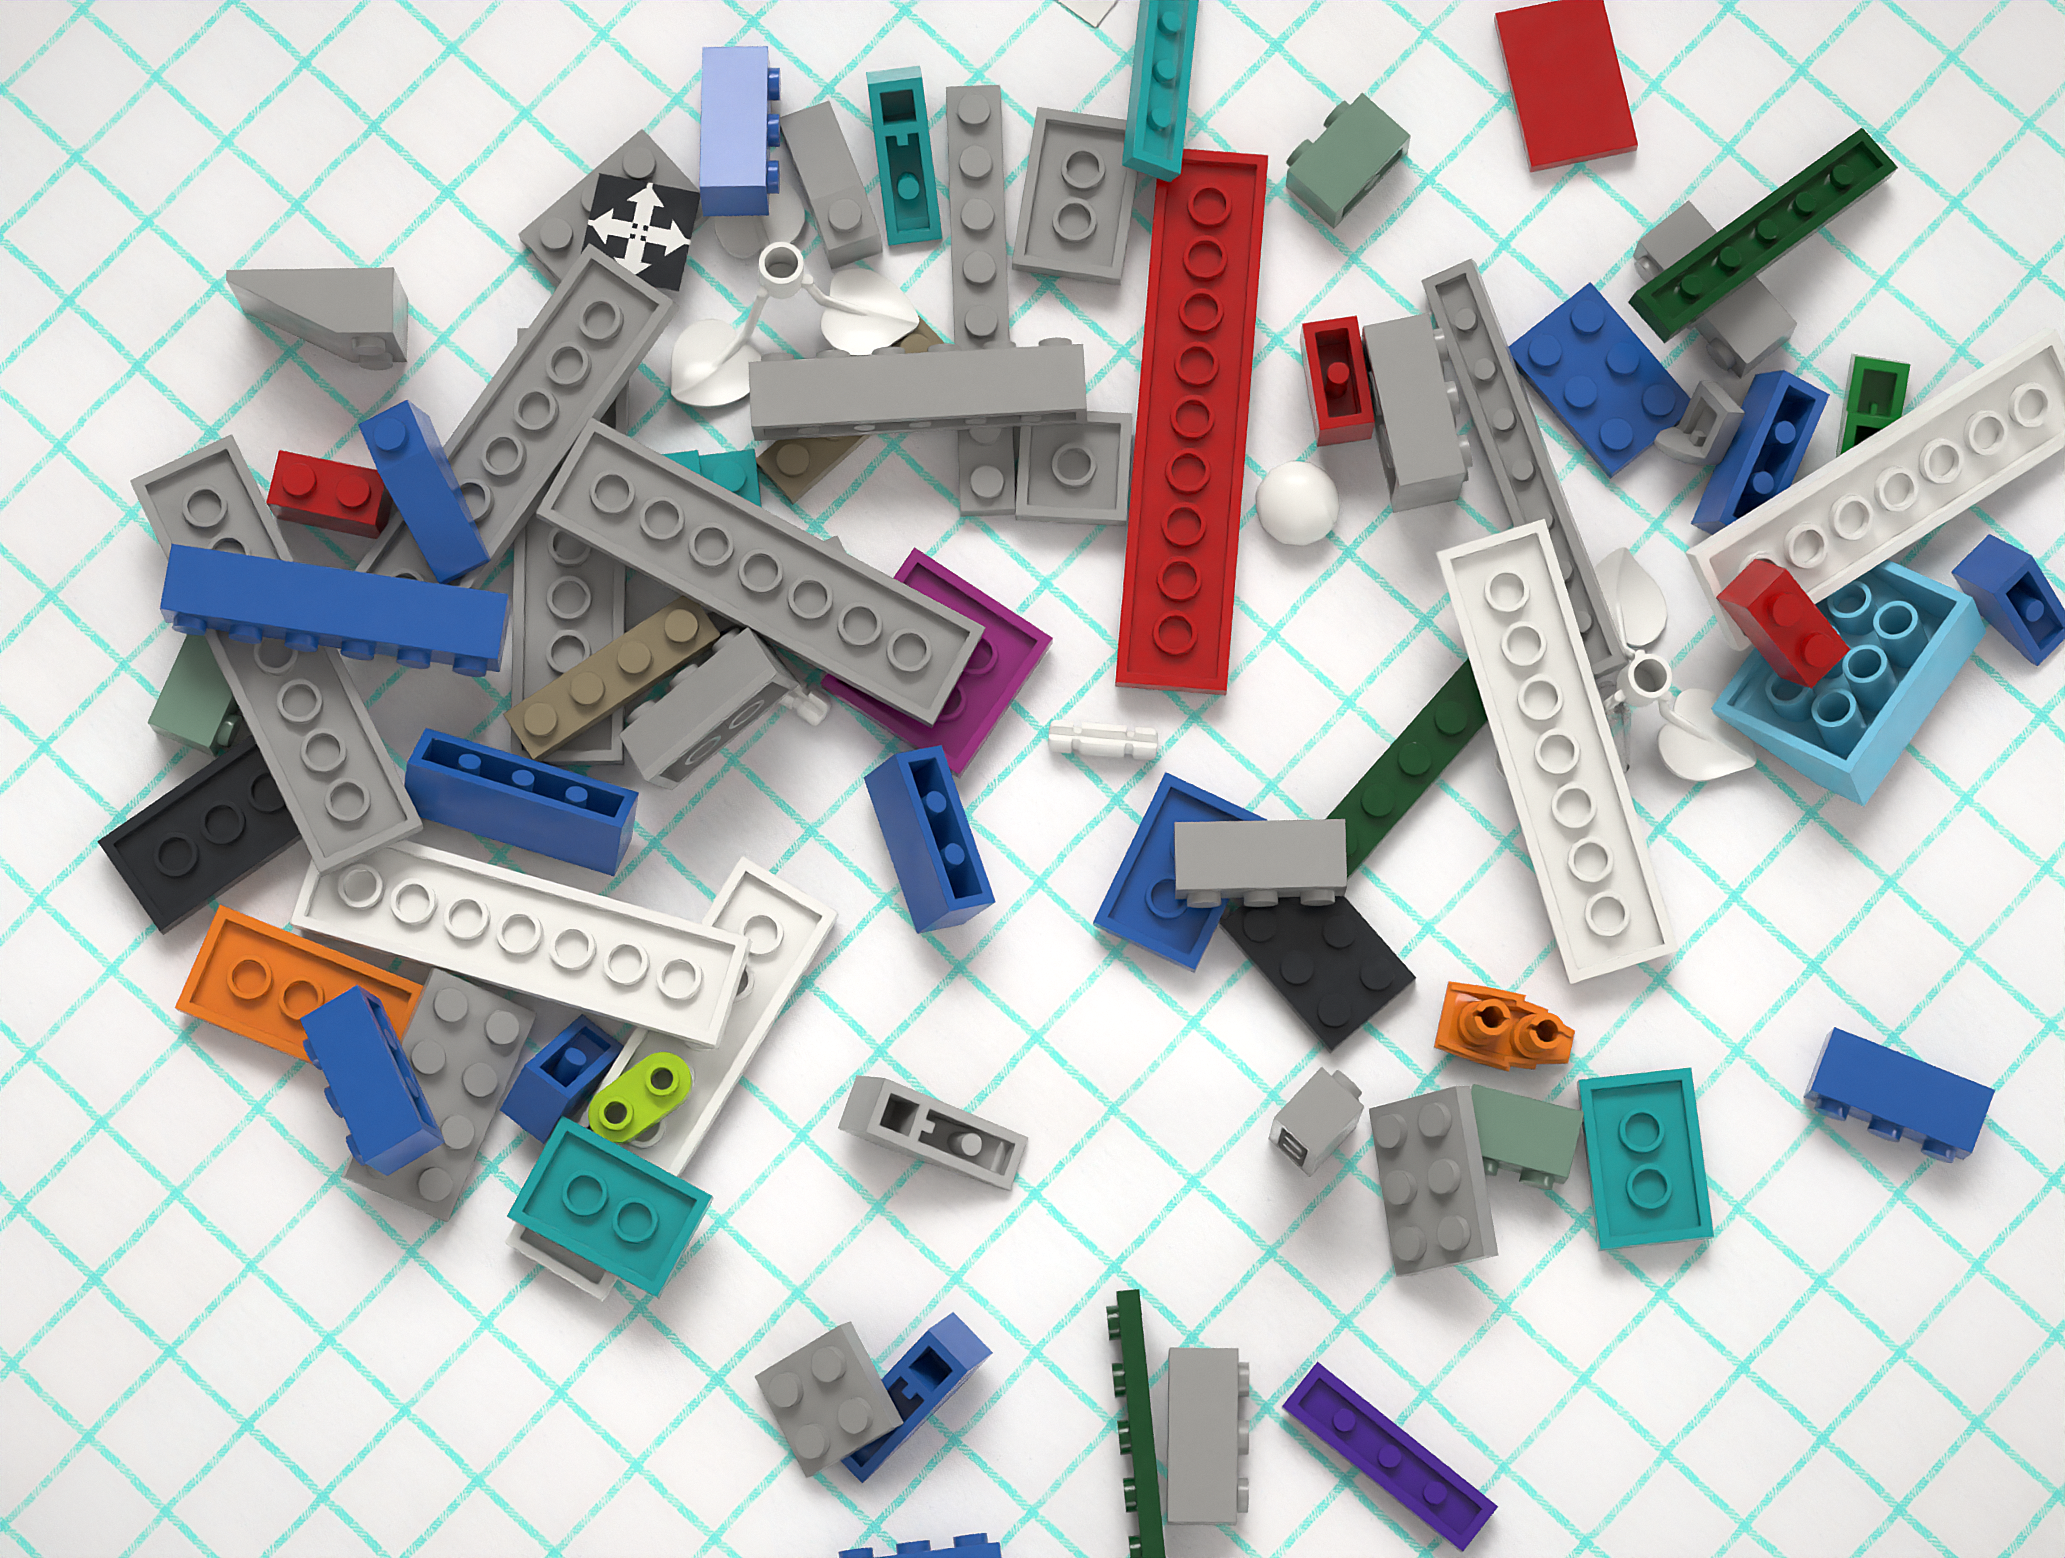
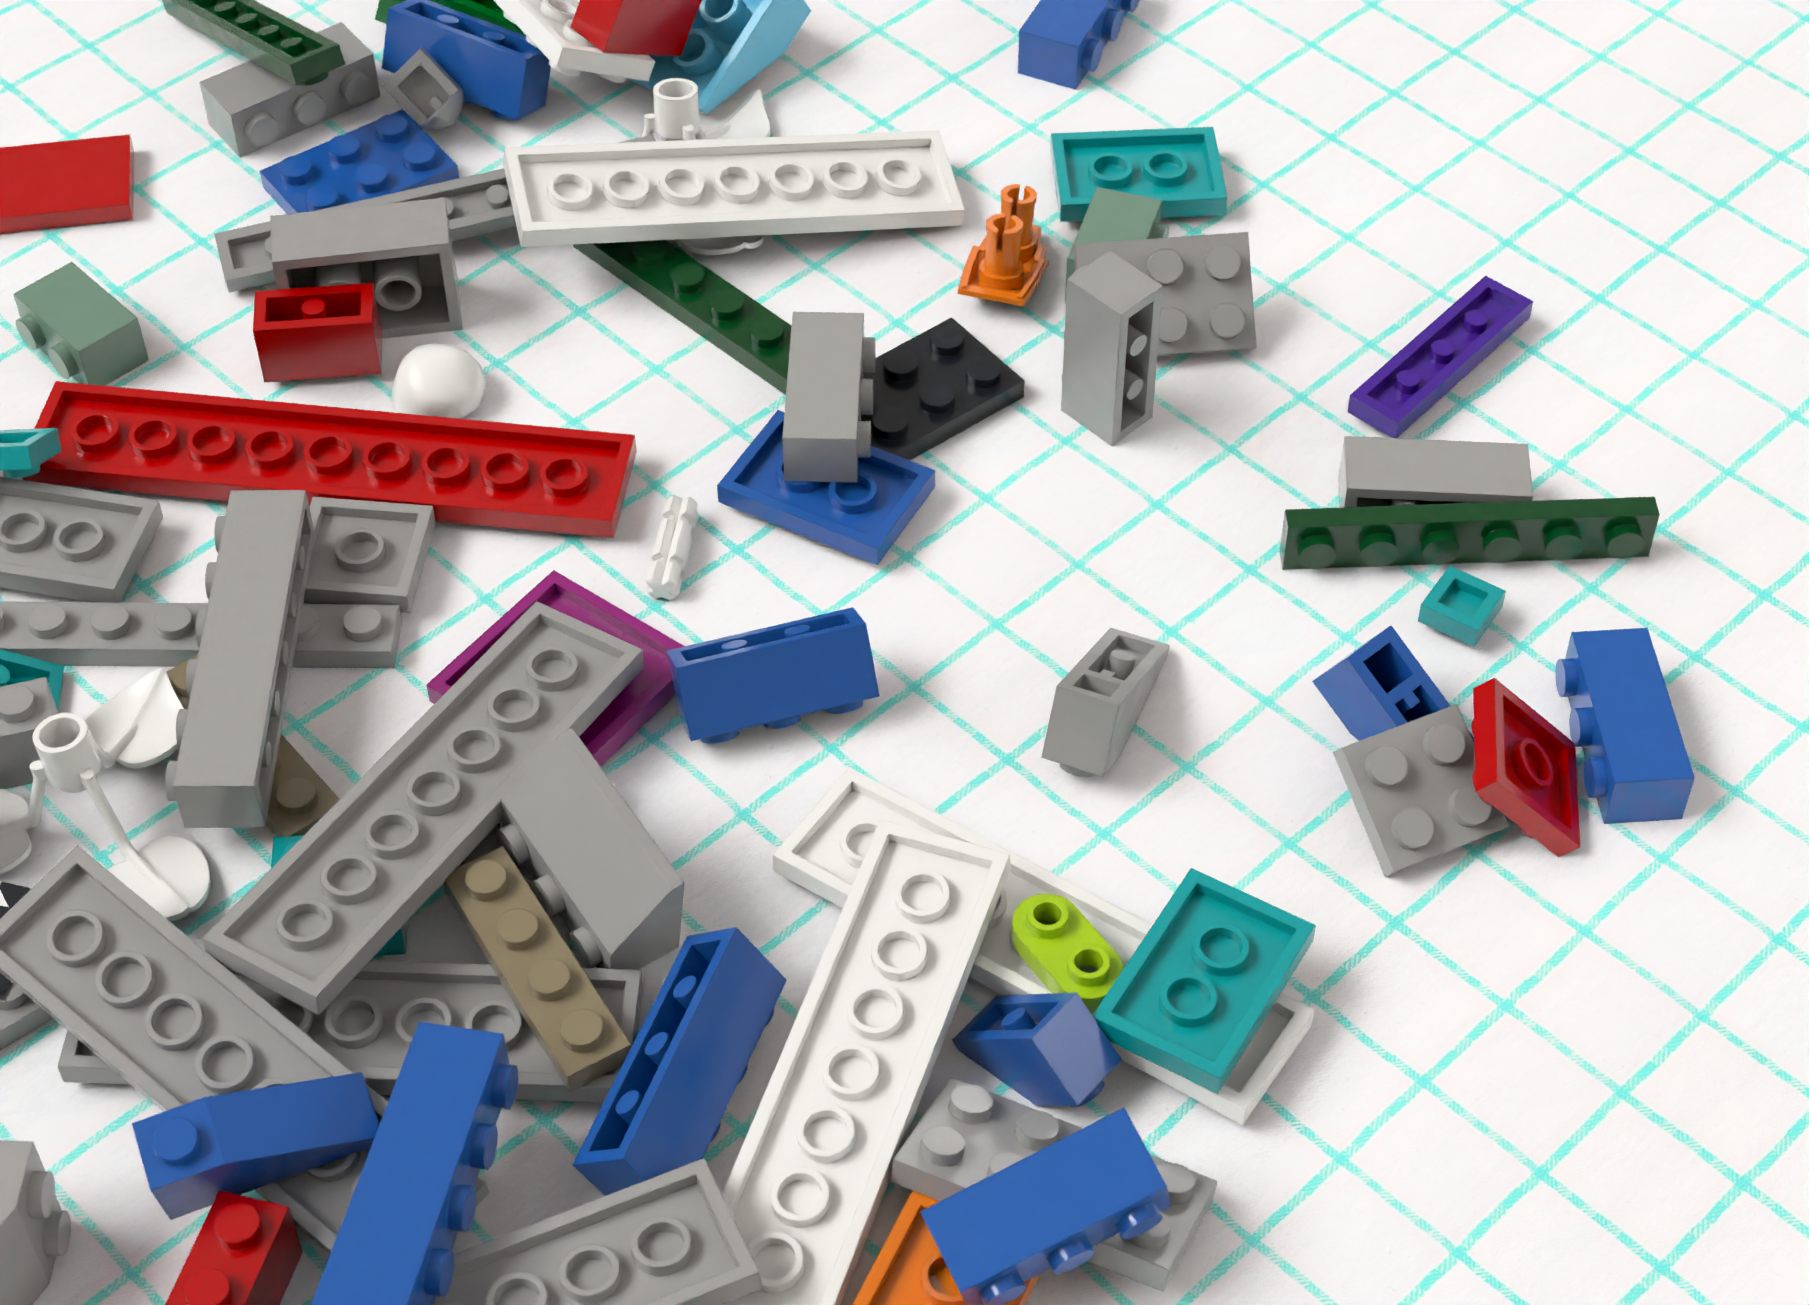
camera: 90 degrees left, 30 degrees down
(848, 1490) = (1525, 768): none -> red plate
(1058, 1453) = (1461, 606): none -> teal plate

